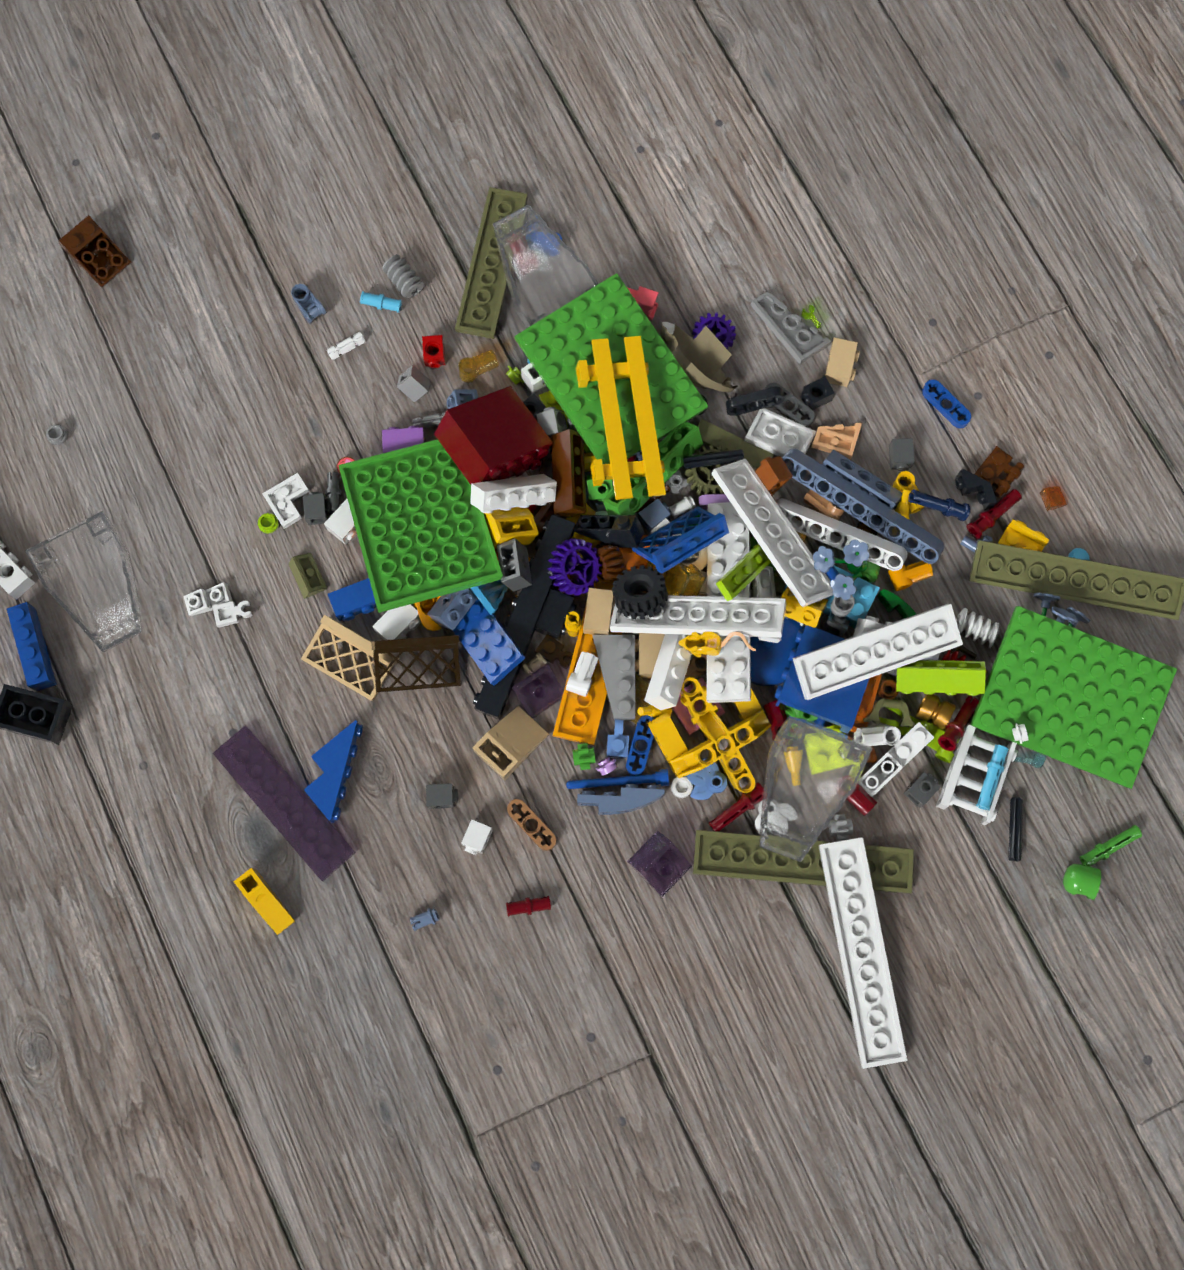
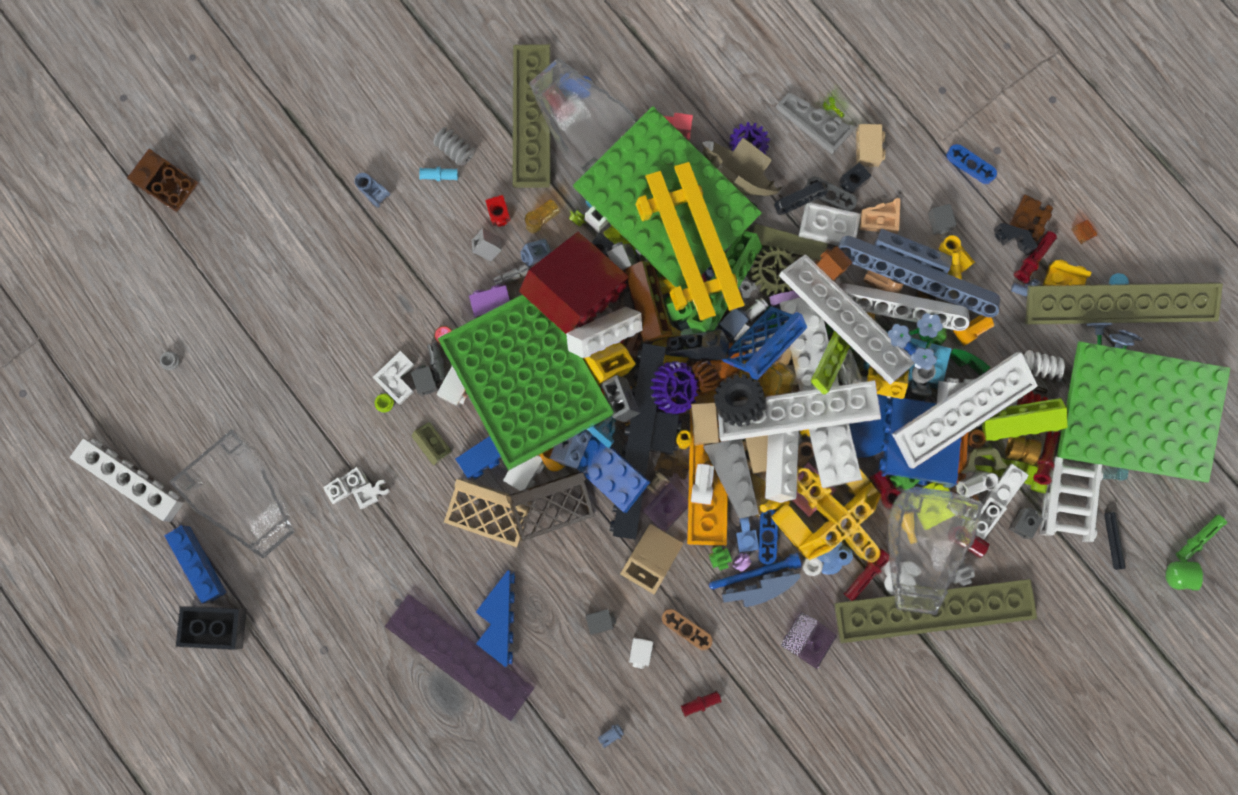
camera: 10 degrees left, 5 degrees up
(264, 900) = (464, 751): yellow slope -> none
(345, 345) = (416, 221): white axle -> none
(708, 643) = (814, 435): yellow animal -> none
(713, 458) = (776, 260): black axle -> none
(862, 953) = (1006, 682): white plate -> none
(946, 507) = (992, 260): dark blue pin -> none
(992, 777) = (1087, 500): medium azure pin -> none
(1020, 733) = (1105, 456): white plate -> none

